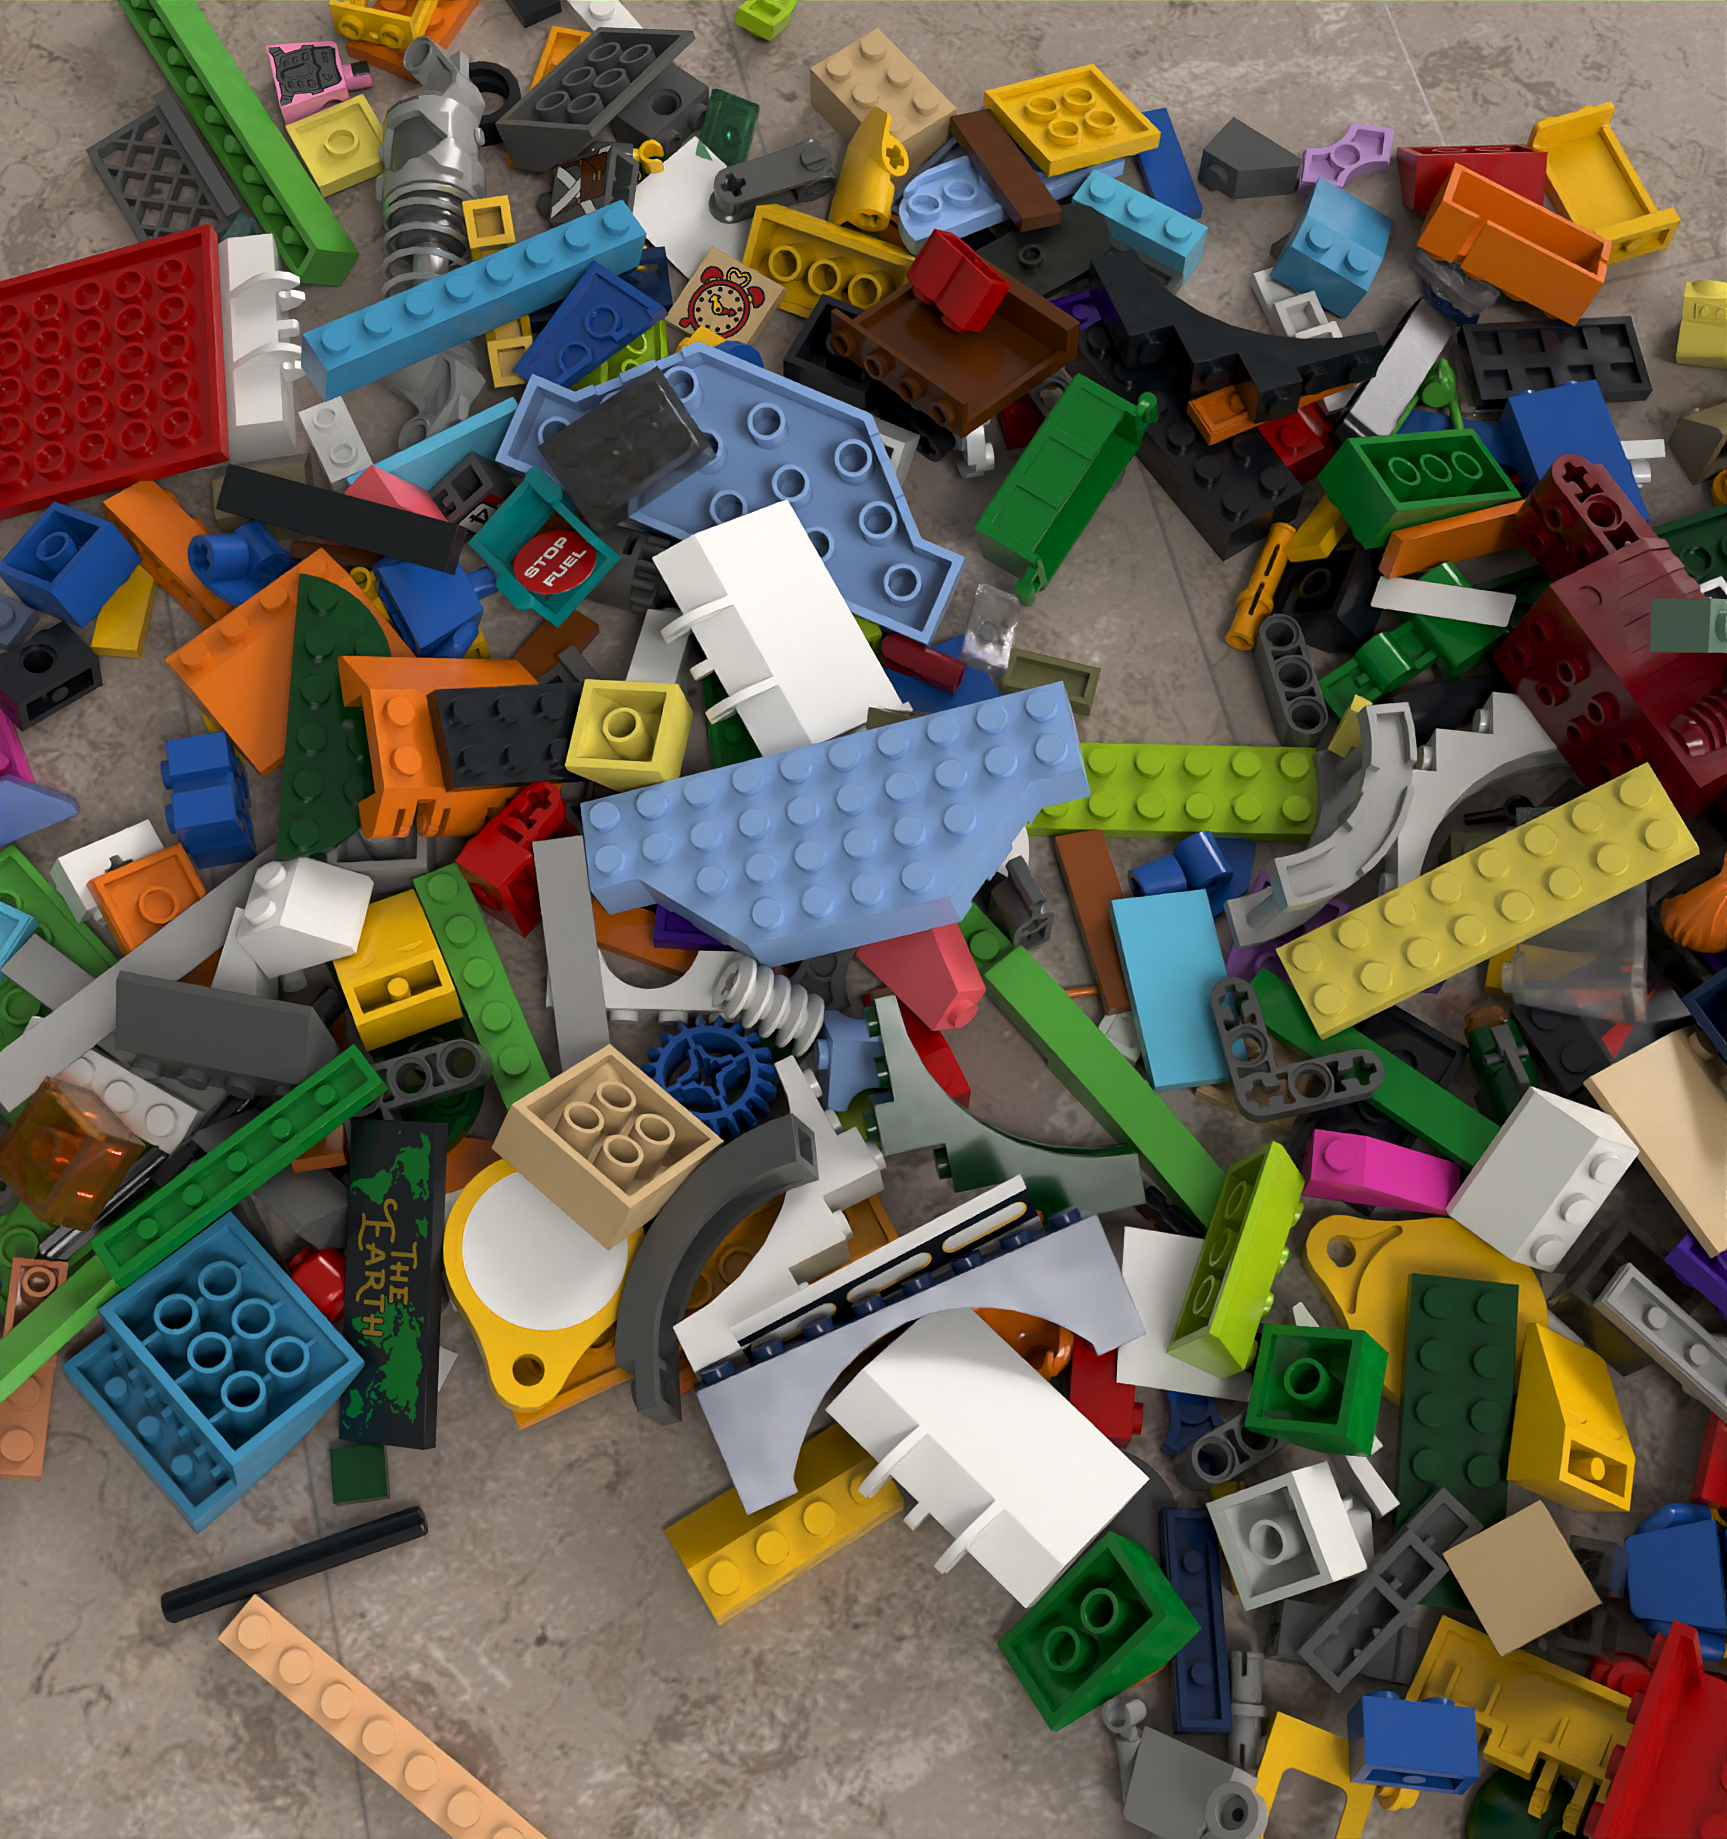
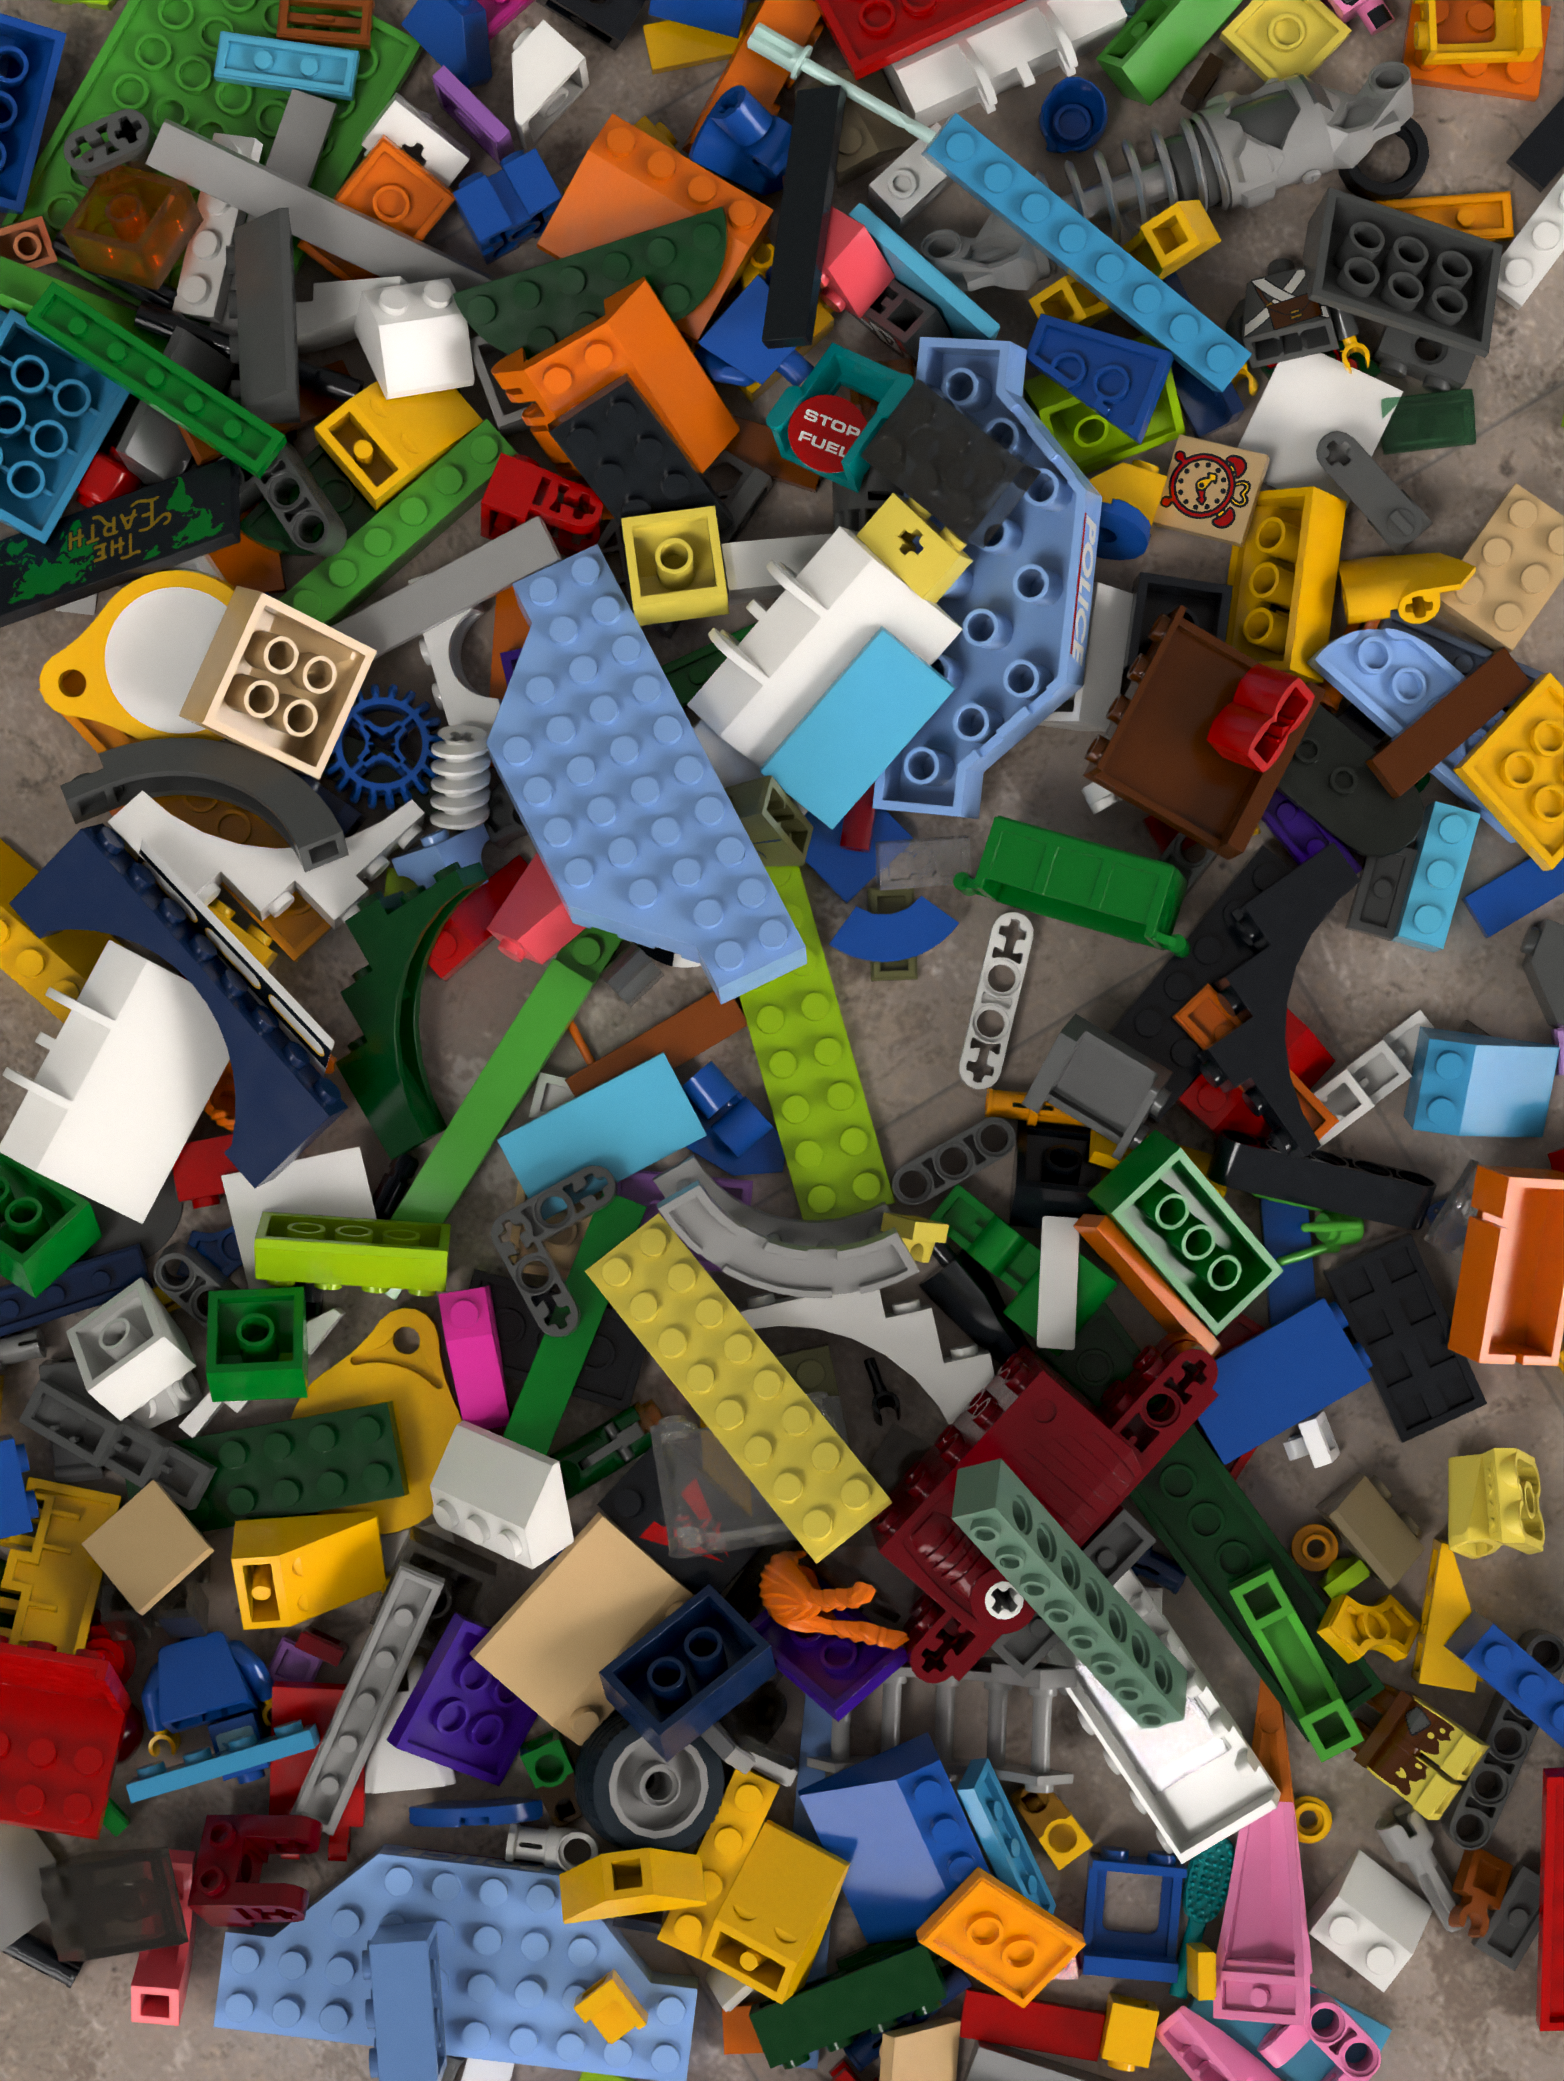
camera: 70 degrees right, 20 degrees up
(99, 736) = (545, 80): none -> white slope
(107, 805) = (472, 115): none -> medium lavender tile
(187, 503) = (796, 59): none -> light aqua piece
(333, 299) = (1073, 116): none -> blue hair
(356, 214) = (1202, 82): none -> dark brown tile
(710, 491) = (891, 536): none -> light yellow brick
(847, 621) = (857, 727): none -> medium azure tile
(1054, 654) = (893, 935): none -> blue tile
(1137, 617) = (1000, 1002): none -> white beam
(1260, 517) = (1101, 1084): none -> dark grey panel
(1659, 1438) = (322, 1645): none -> dark red tile
(1668, 1477) = (292, 1663): none -> medium lavender tile

